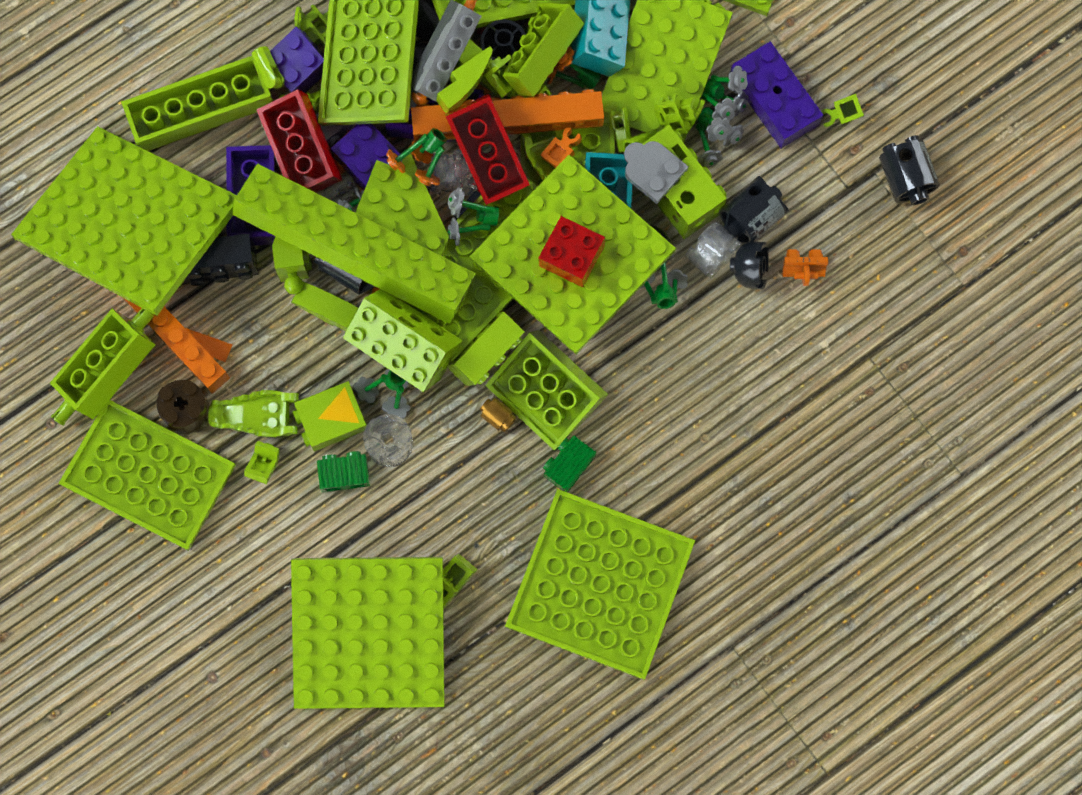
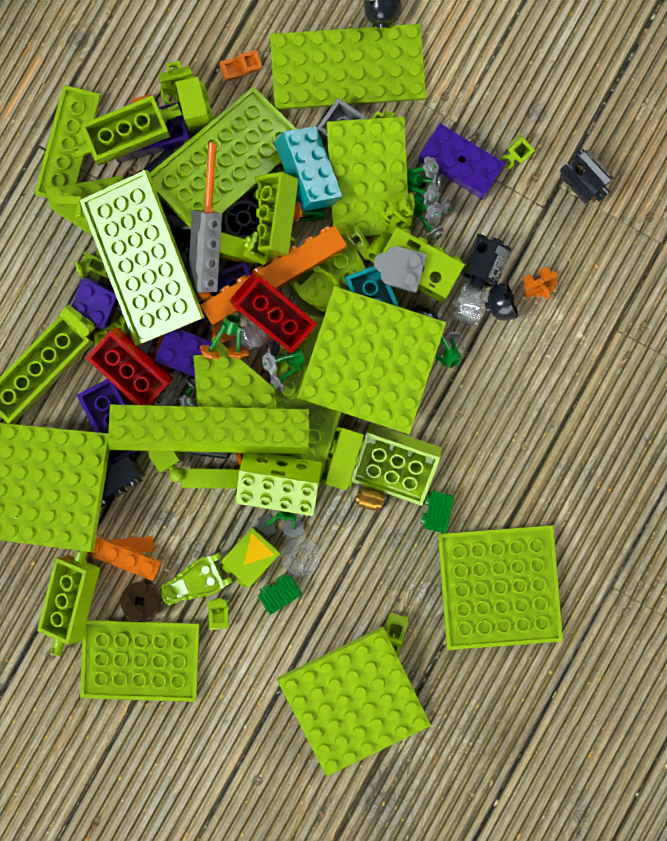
camera: 20 degrees left, 10 degrees up
(464, 81) = (232, 267): lime slope -> none
(559, 150) = (324, 284): orange plate -> none
(571, 251) = (373, 363): red brick -> none

